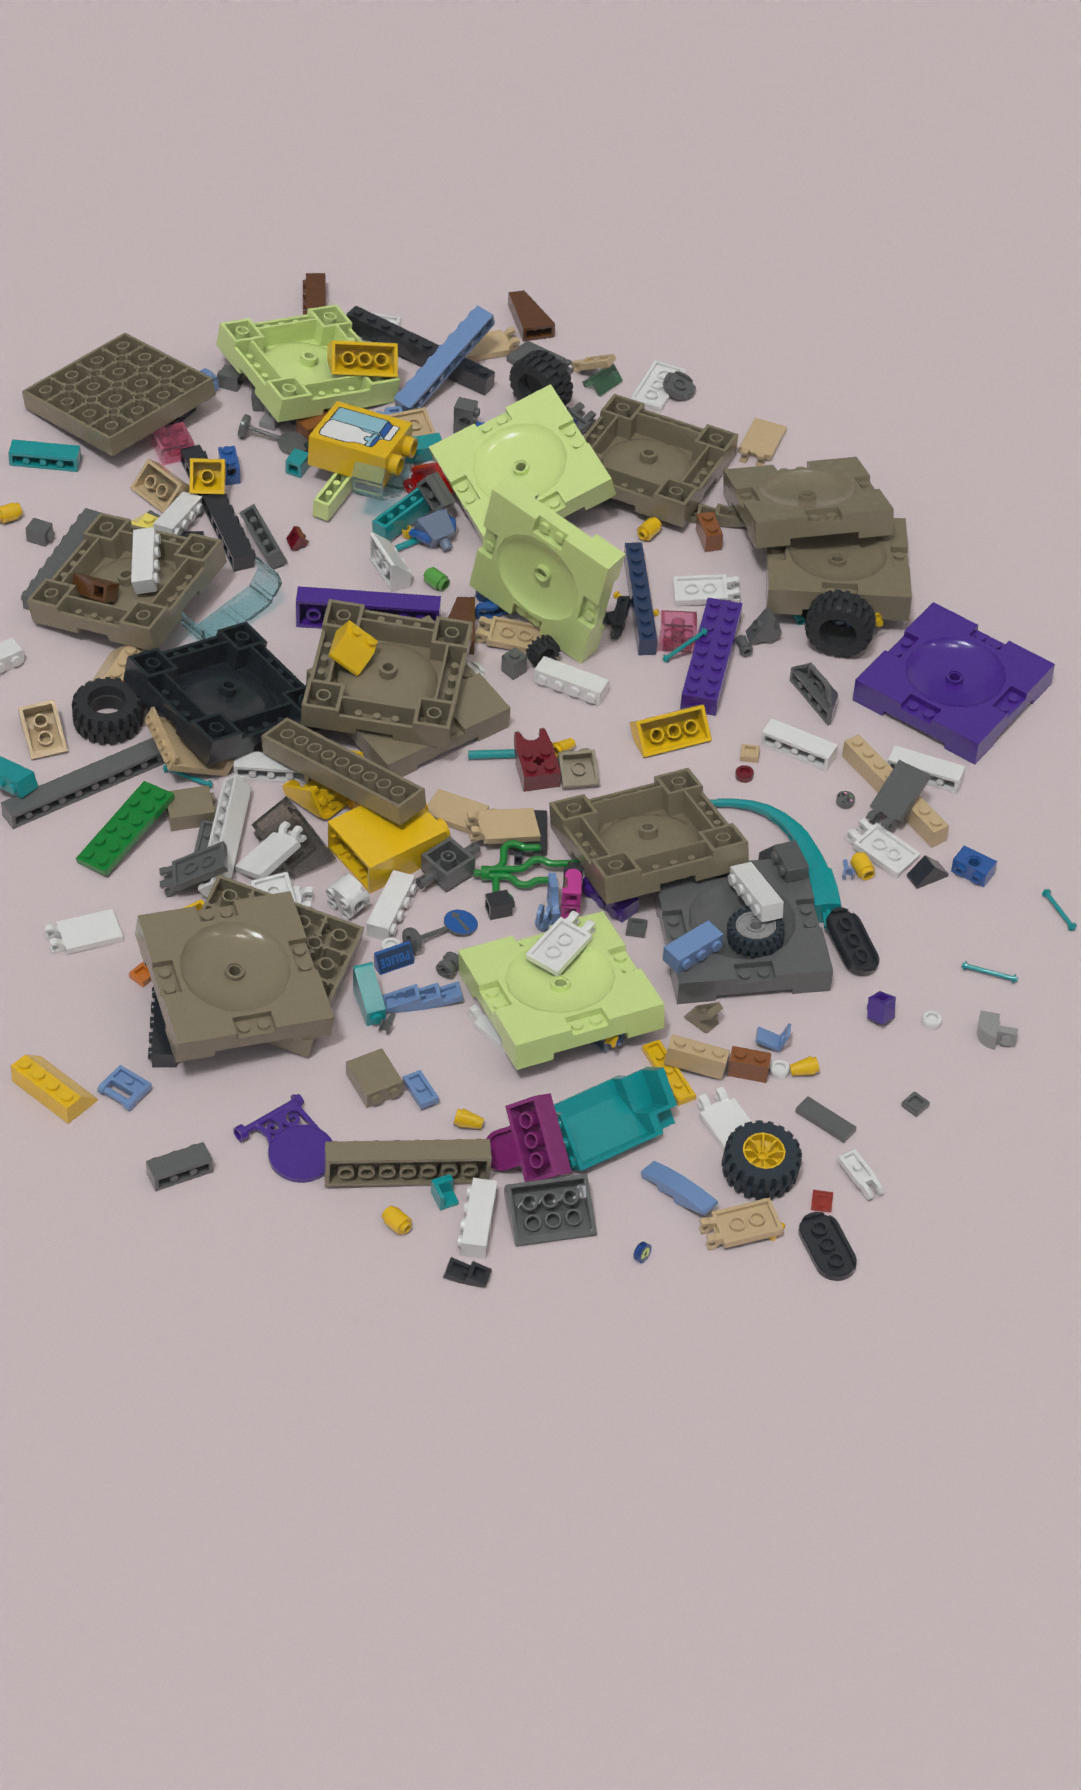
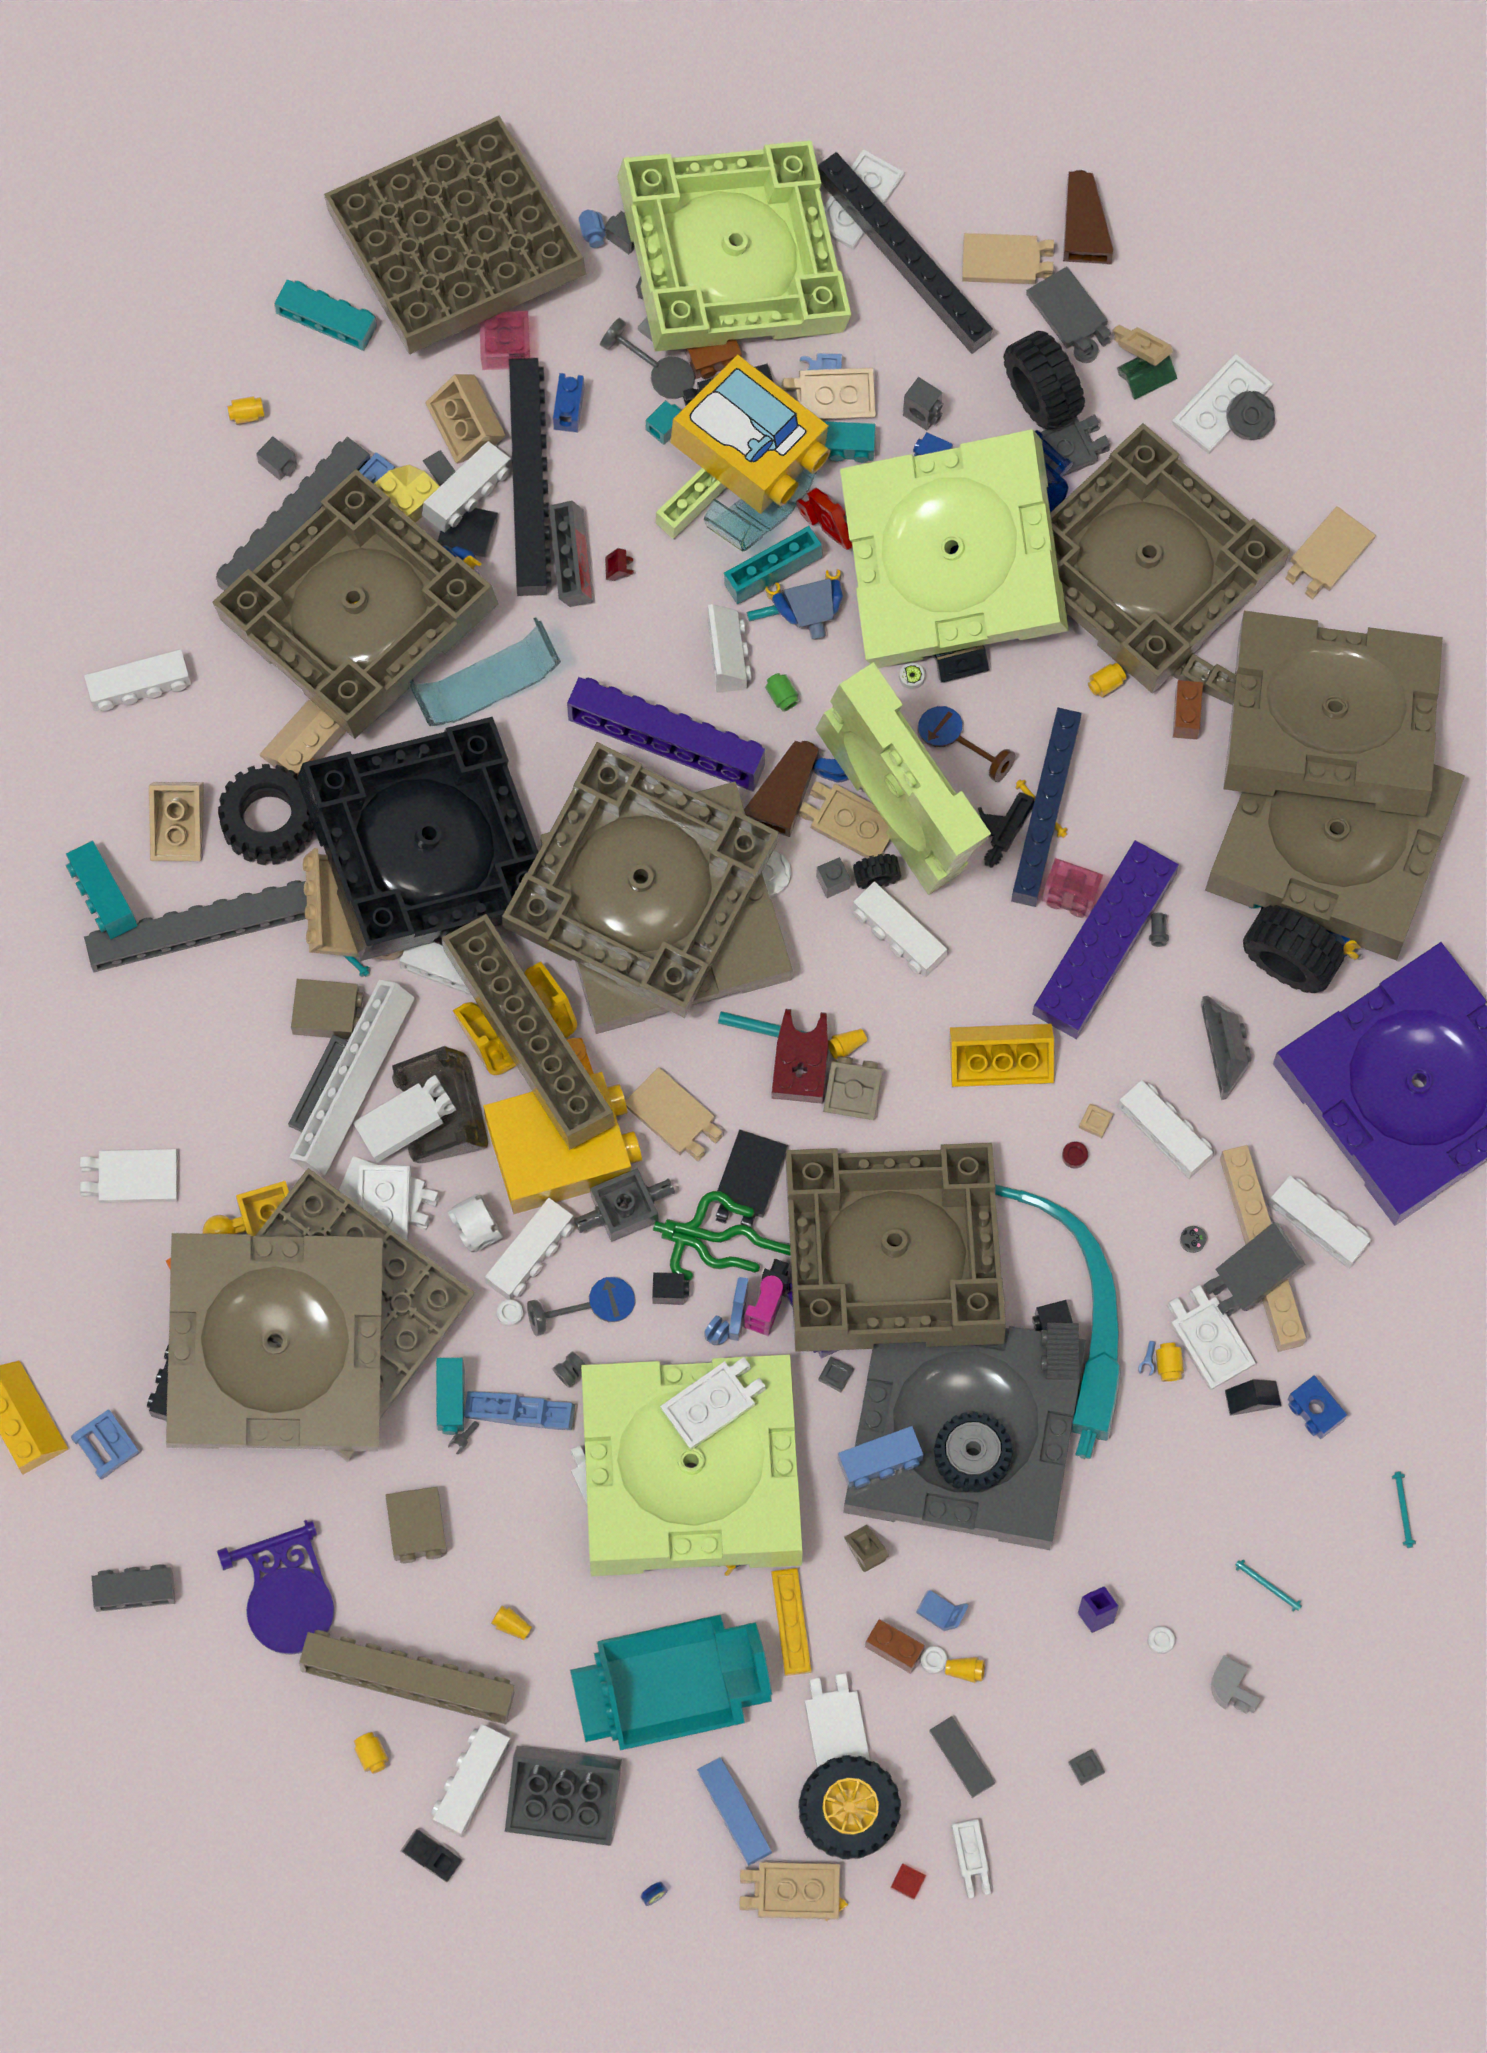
camera: 20 degrees right, 25 degrees up
(96, 588) = (306, 612): reddish brown slope -> none
(125, 828) = (230, 1023): green plate -> none
(145, 560) = (381, 590): white brick -> none
(195, 868) = (295, 1125): dark grey tile -> none
(207, 476) = (525, 429): yellow slope -> none
(314, 291) = (794, 102): reddish brown brick -> none
(352, 647) = (599, 837): yellow slope -> none
(363, 358) = (805, 273): yellow slope -> none
(393, 958) = (505, 1337): slope -> none
(420, 1089) = (468, 1558): medium blue plate -> none
(435, 492) = (825, 551): dark grey brick -> none
(443, 1192) = (443, 1728): teal panel -> none
(445, 359) = (923, 298): medium blue brick -> none
(503, 825) = (719, 1163): tan tile -> none
(531, 1140) = (565, 1700): magenta brick -> none
(666, 657) = (1101, 909): teal axle -> none
(696, 589) = (1143, 811): white tile -> none
(696, 1056) = (834, 1610): tan slope -> none
(756, 892) = (991, 1396): white brick -> none
(763, 628) = (1194, 912): dark grey brick -> none
(827, 1246) = (888, 1951): black tile -> none
(852, 941) = (1103, 1488): black tile -> none

